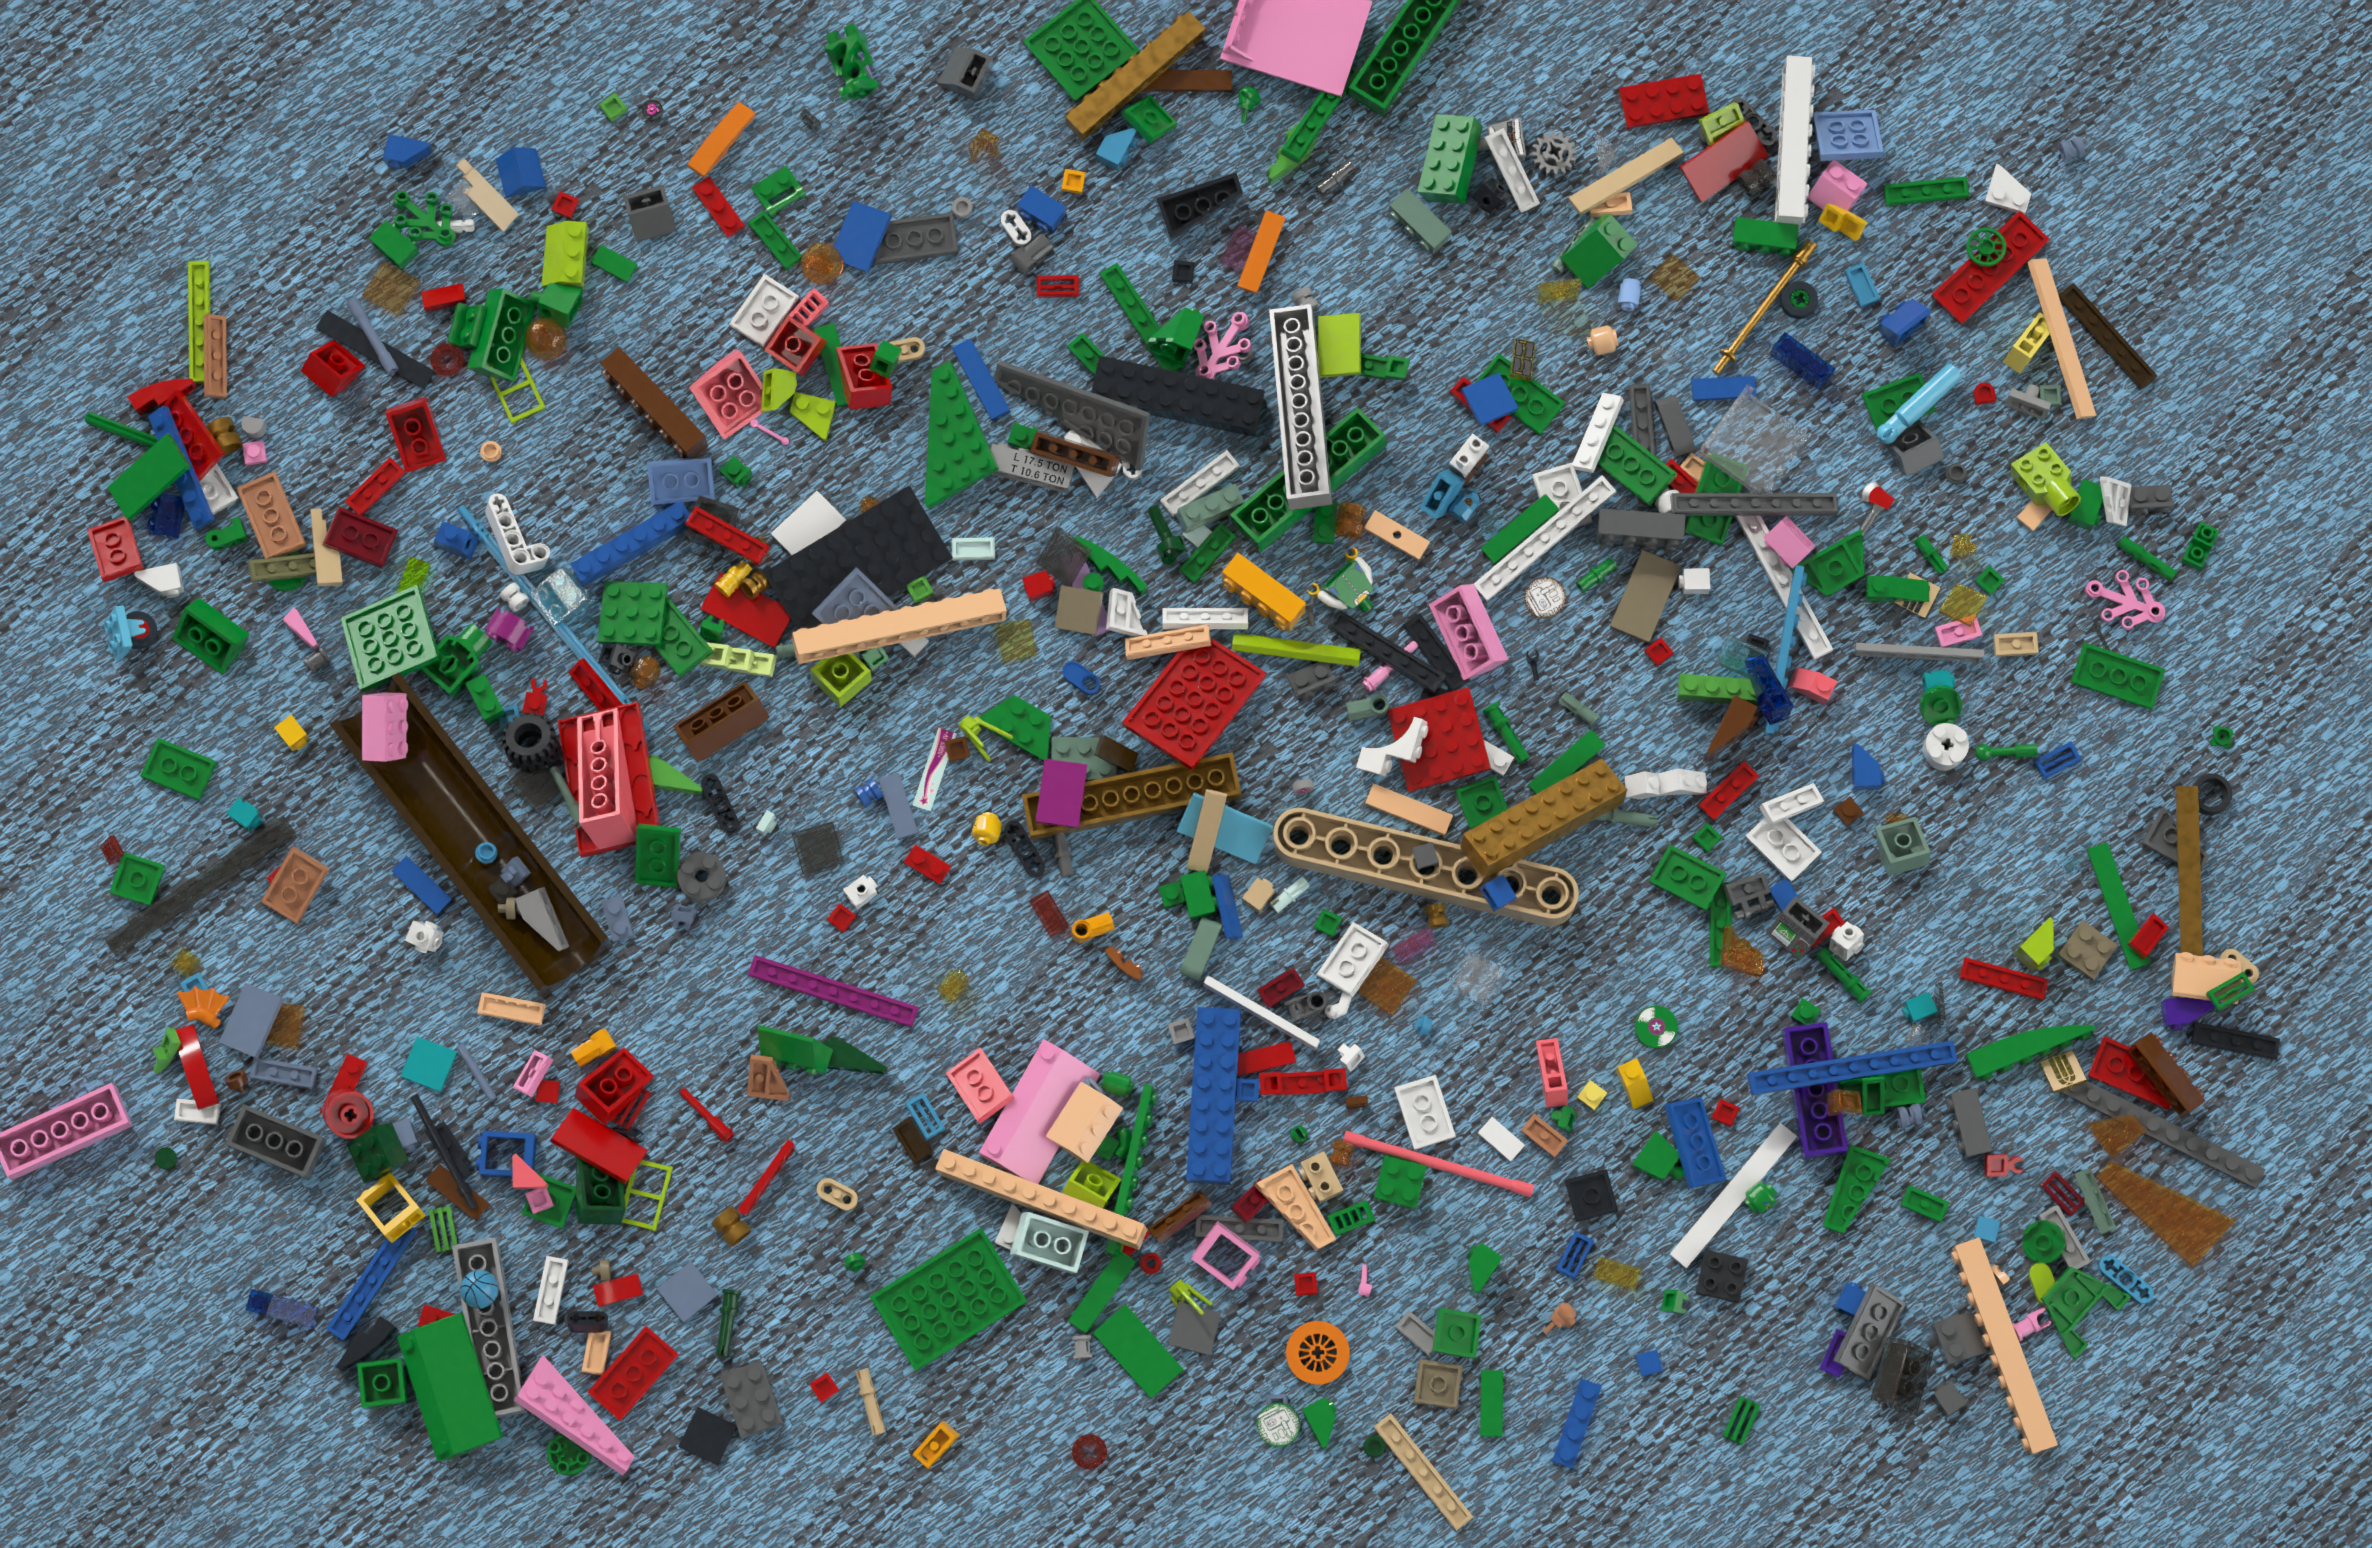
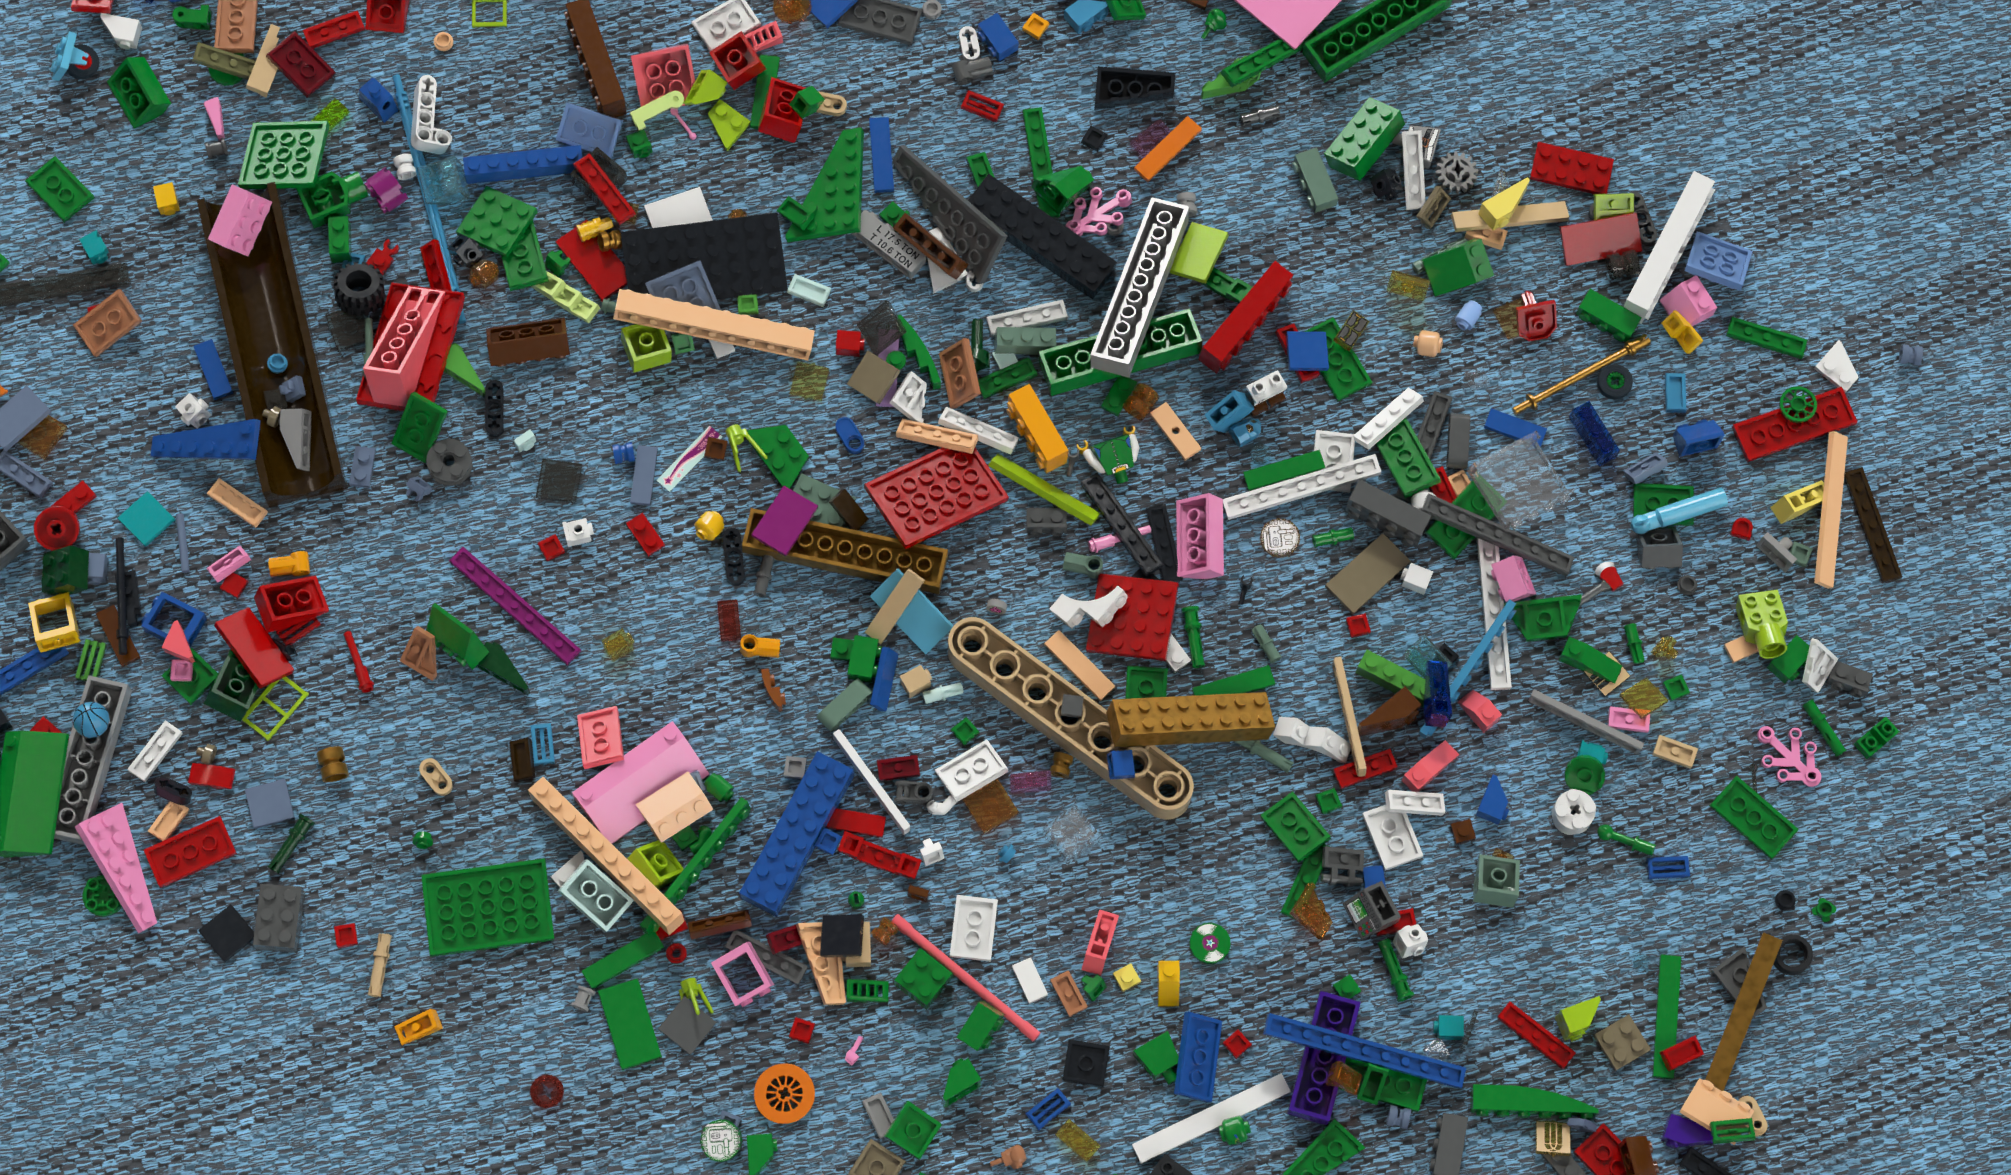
camera: 20 degrees right, 5 degrees down
(470, 957) = (222, 441): none -> blue wing
(749, 414) = (670, 100): none -> yellowish green leg
(766, 1178) = (382, 737): red tile -> none
(925, 476) = (796, 213): none -> green tile
(1161, 569) = (959, 373): none -> nougat tile
(1304, 1176) = (842, 935): none -> black tile
(1414, 395) = (1246, 317): none -> red brick
(1477, 1205) = (981, 1026): none -> green brick
(1547, 199) = (1432, 205): none -> dark tan tile
(1614, 173) = (1500, 208): none -> light yellow slope
(1692, 747) = (1349, 717): none -> tan tile
(1697, 270) = (1535, 319): none -> red piece
(1789, 762) = (1429, 767): none -> coral slope
(1867, 374) = (1646, 468): none -> sand blue plate
(2085, 1047) = (1582, 1125): none -> sand blue tile
(2181, 744) = (1785, 900): none -> black plate

